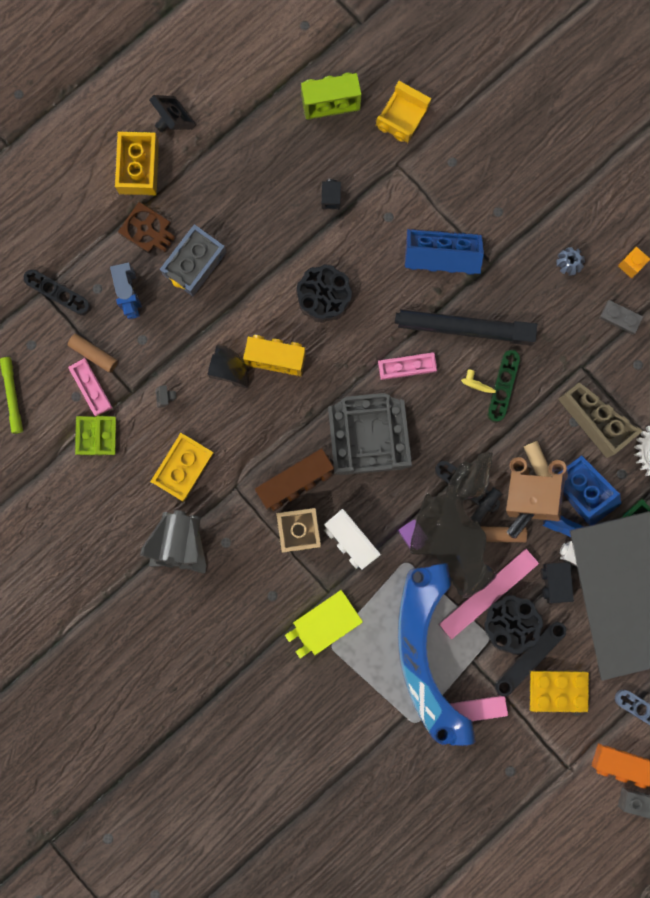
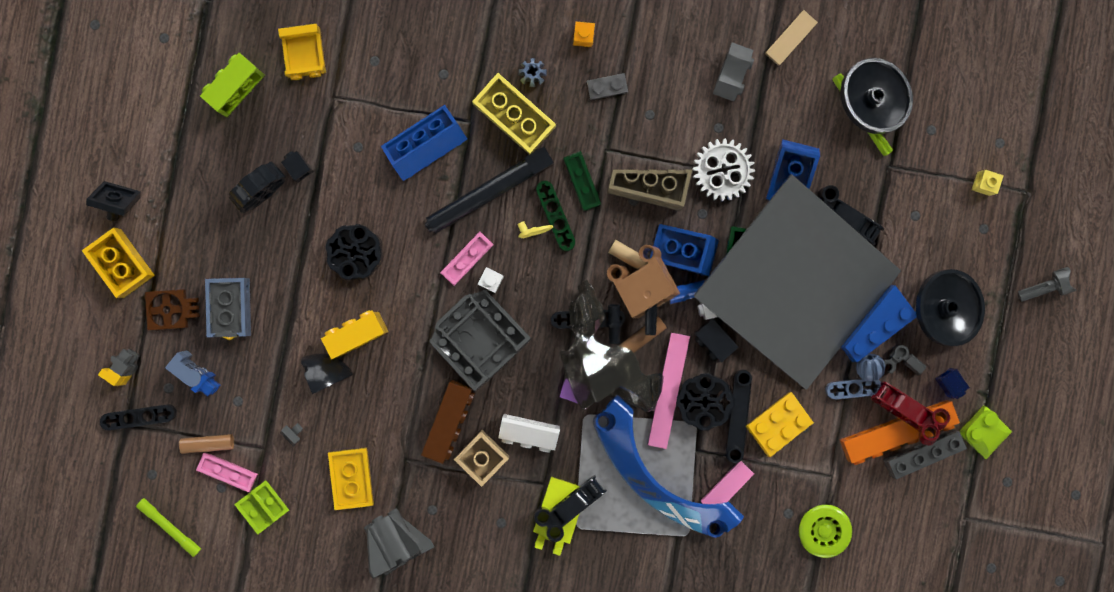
camera: 40 degrees left, 5 degrees up
(75, 244) = (122, 368): none -> dark grey hips
(289, 185) = (257, 187): none -> black connector
(339, 625) = (570, 507): none -> black piece
(414, 396) = (490, 280): none -> white brick
(531, 809) = (825, 531): none -> lime wheel
(532, 281) = (514, 114): none -> light yellow brick
(545, 375) = (582, 181): none -> dark green tile

